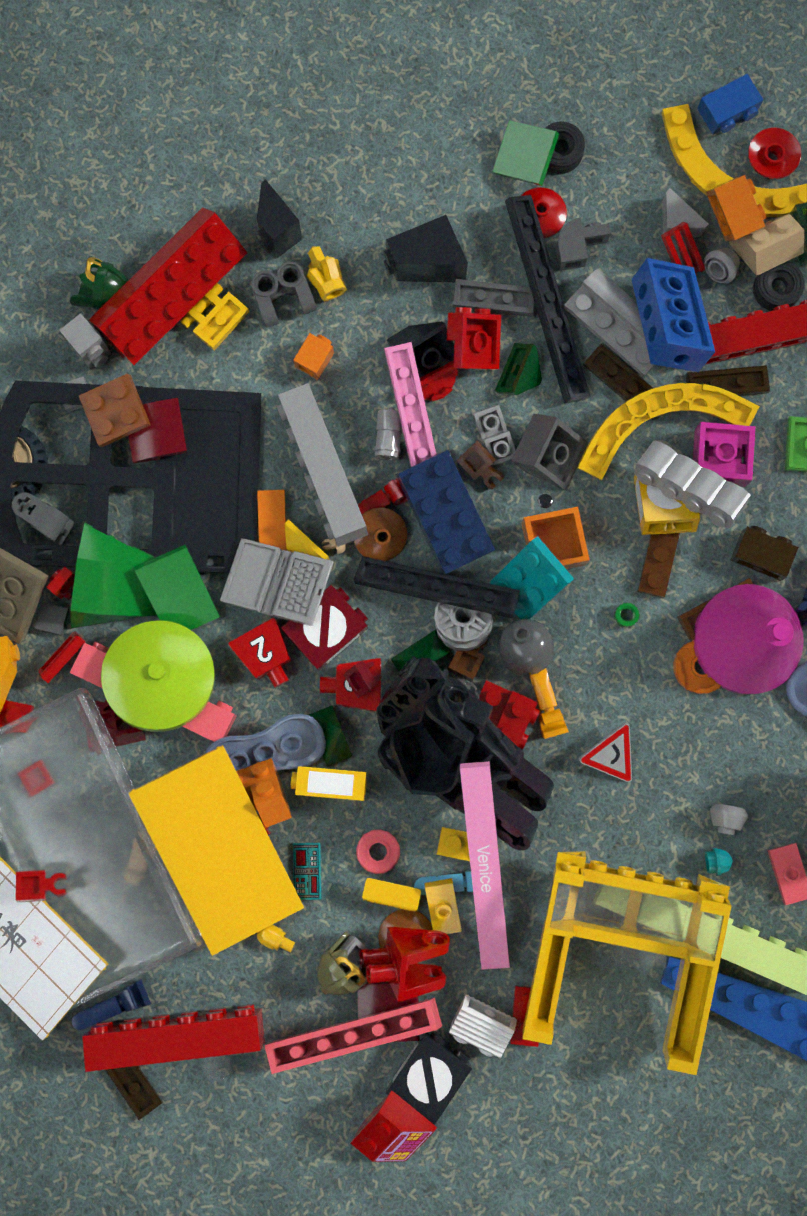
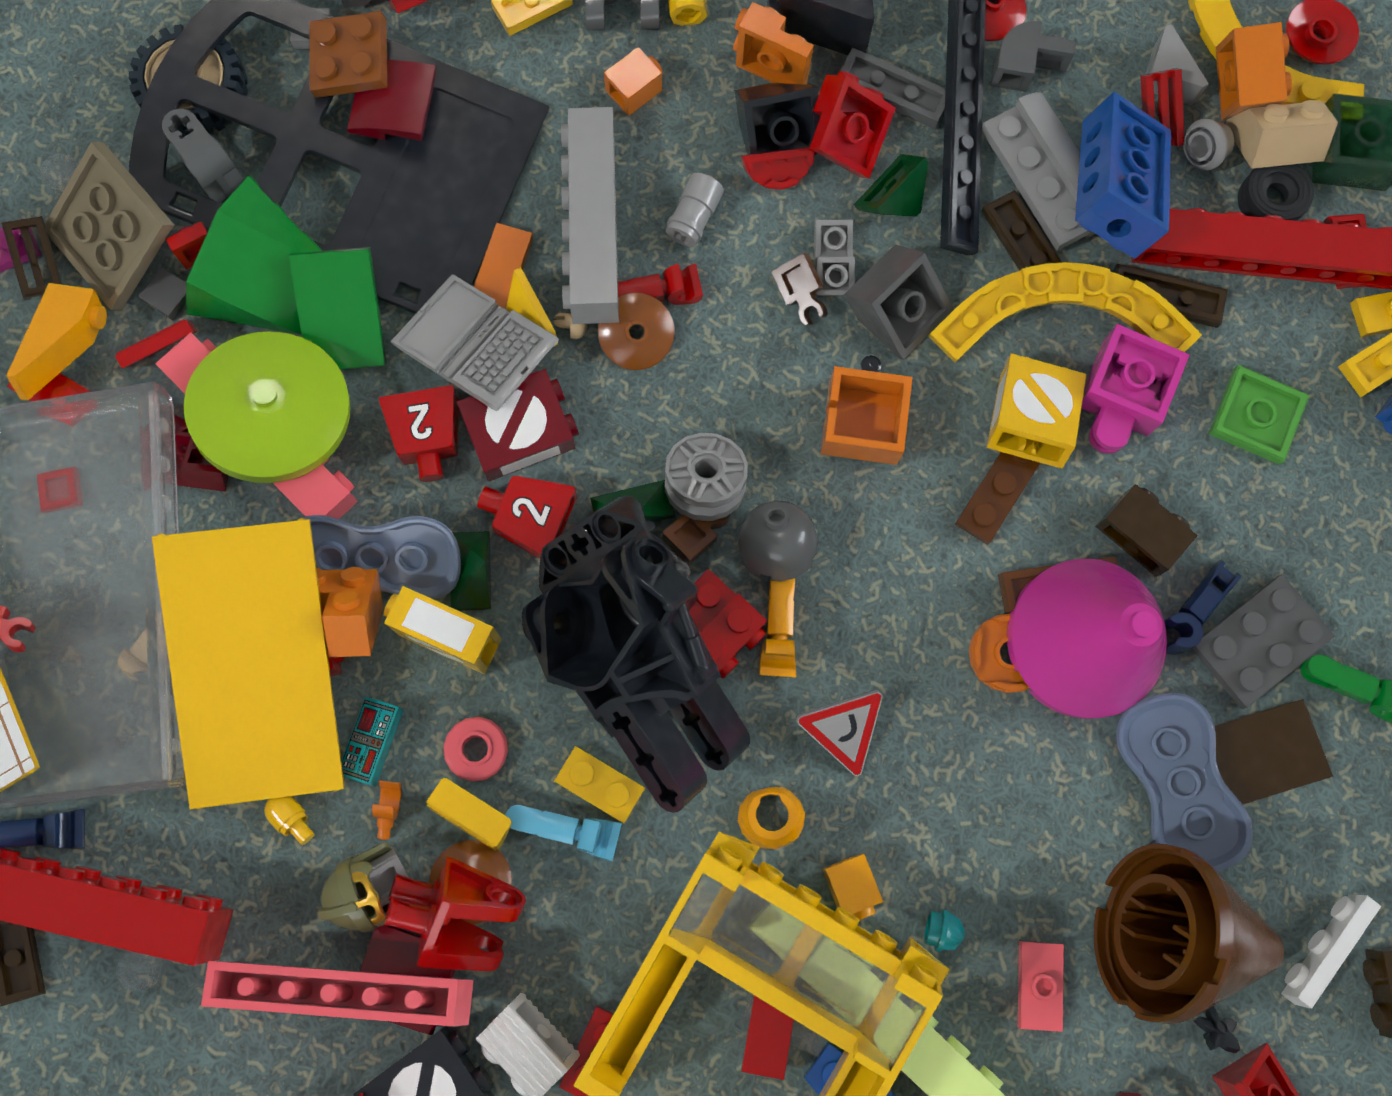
camera: 15 degrees right, 5 degrees down
(335, 909) = (388, 807): none -> orange piece
(361, 678) = (536, 501): dark red tile -> none
(394, 303) = (768, 50): none -> orange plate
(410, 402) = (733, 205): bright pink tile -> none
(437, 587) = (687, 421): black tile -> none
(443, 906) = (535, 855): yellow plate -> none
(445, 512) = (731, 325): dark blue brick -> none
(485, 864) = (610, 811): bright pink tile -> none
(536, 575) = (816, 450): teal plate -> none
(579, 842) = (771, 839): none -> light orange piece
(630, 969) = (767, 1041): none -> red tile
(635, 615) = (933, 537): green axle -> none
(651, 853) = (853, 886): none -> light orange brick
(688, 482) = (1082, 400): light grey brick -> none
(728, 818) = (978, 874): light grey cone -> none

